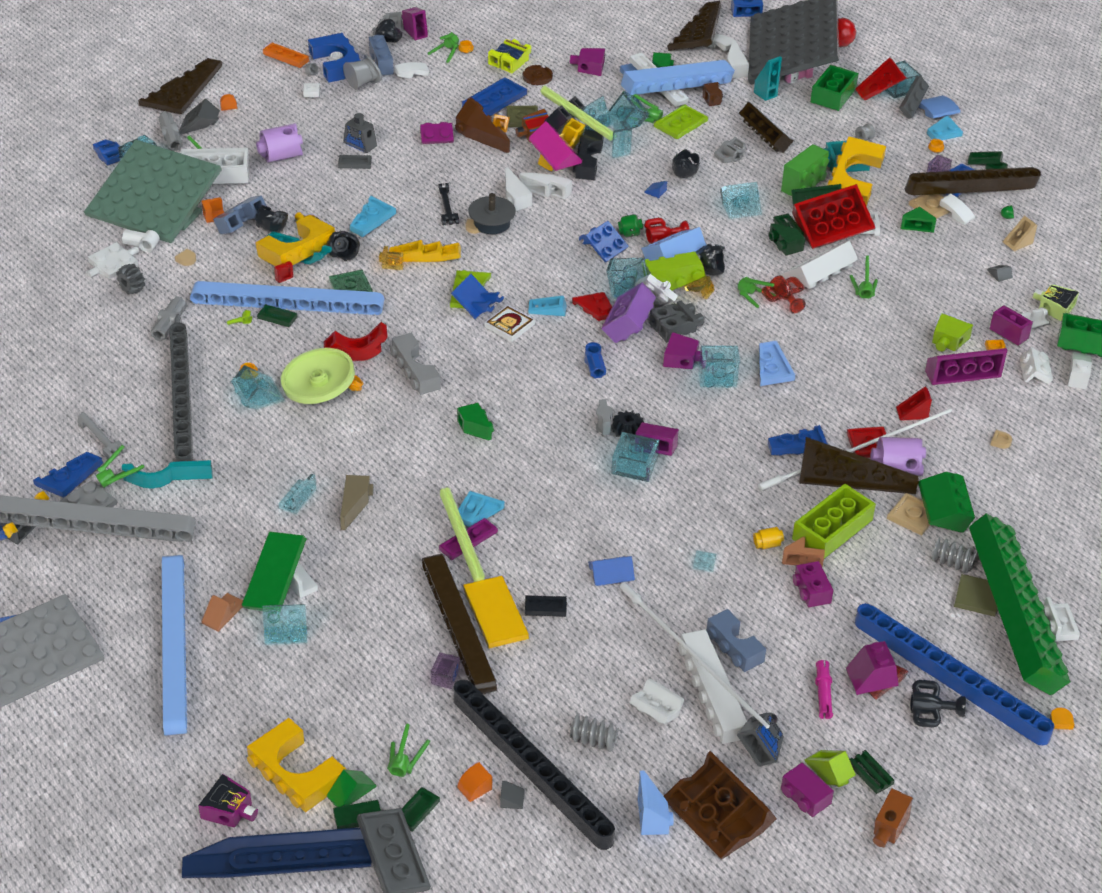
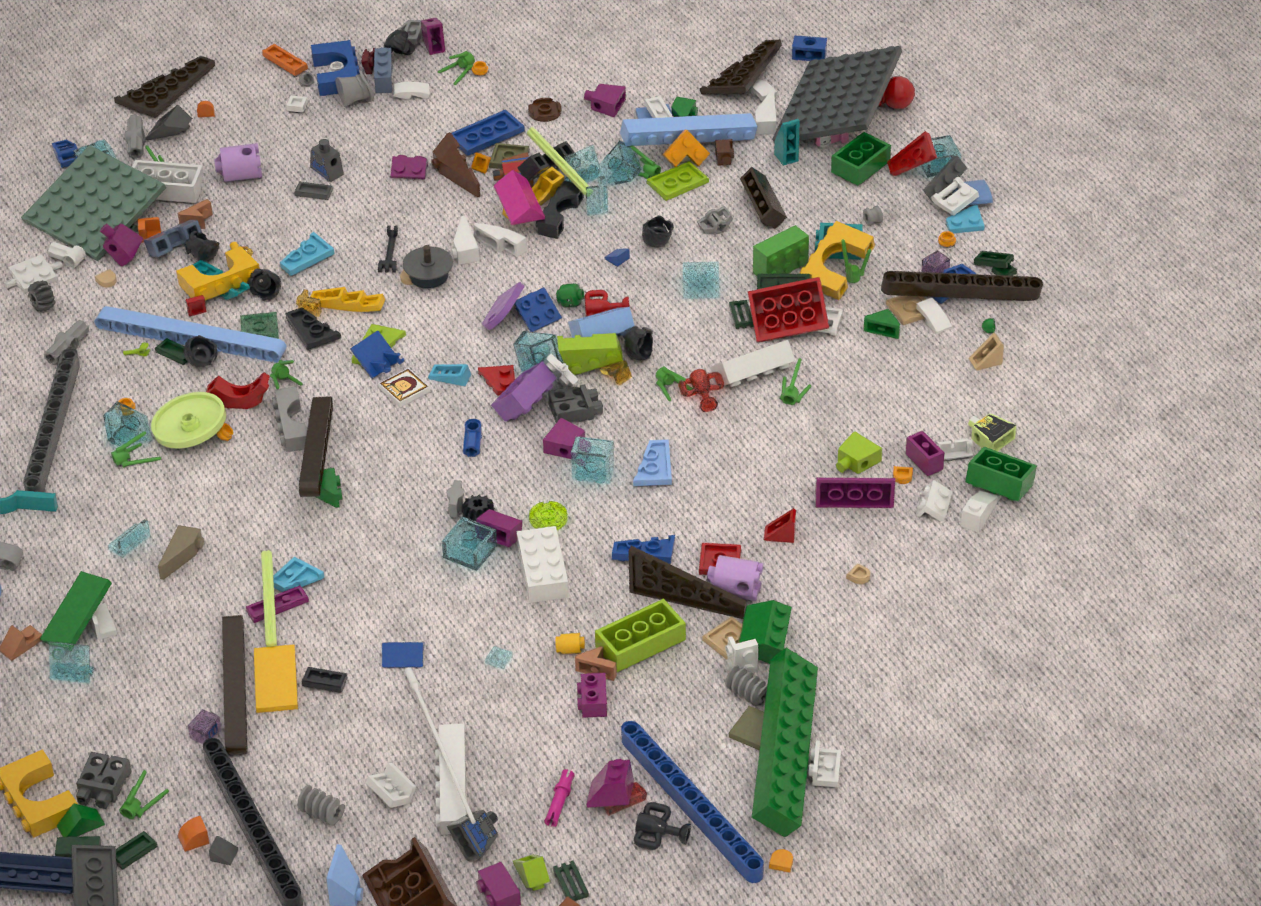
camera: 15 degrees right, 0 degrees up
(192, 223) = (121, 243): none -> magenta torso
(256, 188) = (196, 212): none -> nougat slope
(262, 416) = (121, 454): none -> bright green plant
(305, 311) = (200, 351): none -> black hair
(360, 747) = (102, 780): none -> dark grey hips
(364, 46) = (368, 61): none -> dark red plate
(391, 321) = (281, 371): none -> bright green plant
(400, 282) = (309, 329): none -> black wing
(454, 386) = (316, 447): none -> dark brown beam
(509, 54) = (522, 83): neon yellow hips -> none
(575, 241) = (502, 306): none -> medium lavender tile
(681, 91) = (686, 145): none -> light orange plate
(698, 427) = (541, 517): none -> clear neon green tile
(711, 467) = (542, 564): none -> white brick
(743, 652) = (496, 751): sand blue arch -> none
(780, 478) = (610, 585): white piece -> none
(786, 238) = (731, 329): dark green slope -> none
(871, 178) = (852, 271): none -> bright green plant
(933, 113) = (958, 200): none -> white plate
(938, 526) = (742, 654): none -> white bracket
(1001, 272) = (949, 393): dark grey slope -> none

